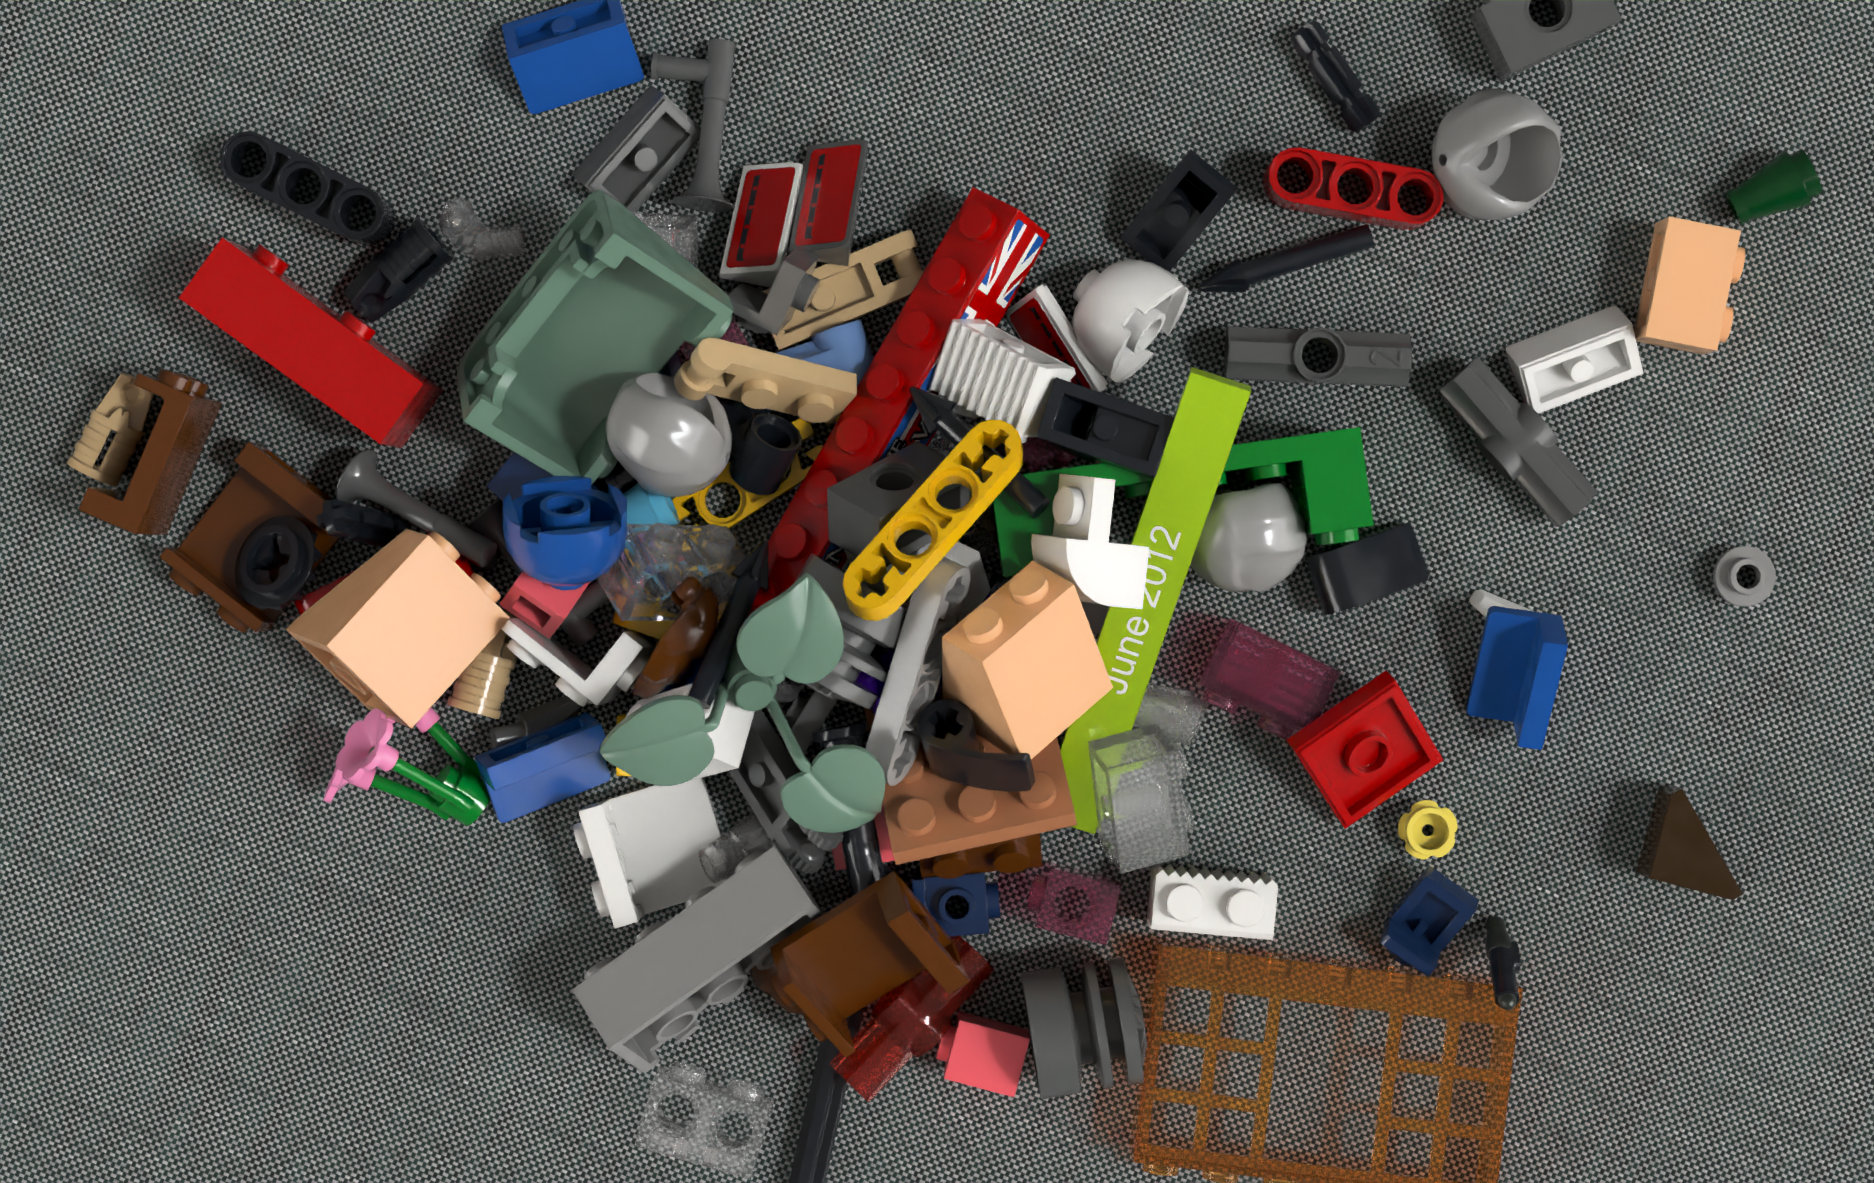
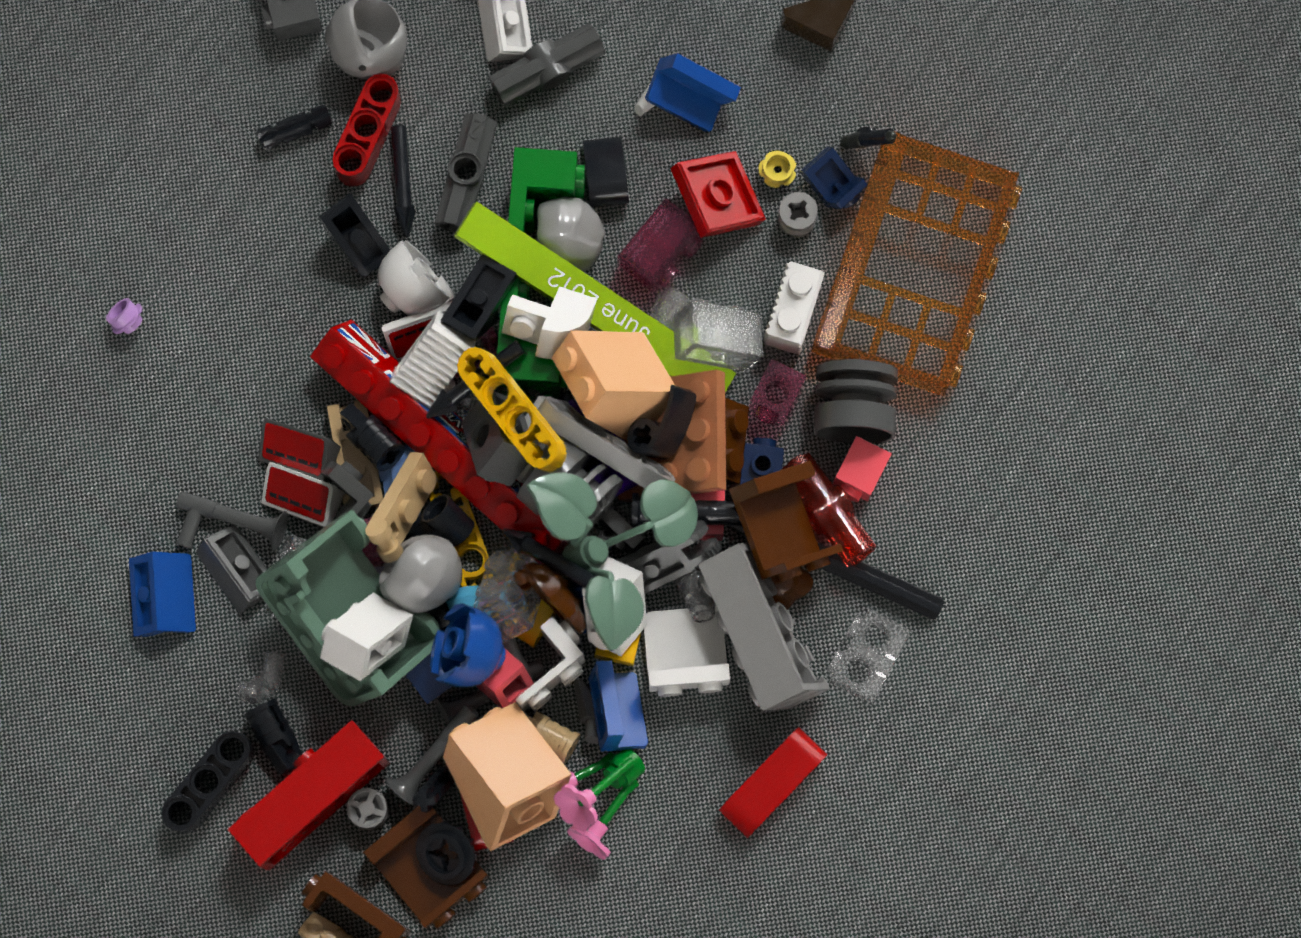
camera: 80 degrees left, 10 degrees down
(309, 430) = (361, 806): none -> light grey wheel
(489, 1017) = (773, 782): none -> red beam
(548, 374) = (365, 636): none -> white brick
(865, 311) = (372, 438): none -> black hinge
(1351, 870) = (794, 222): none -> light grey wheel

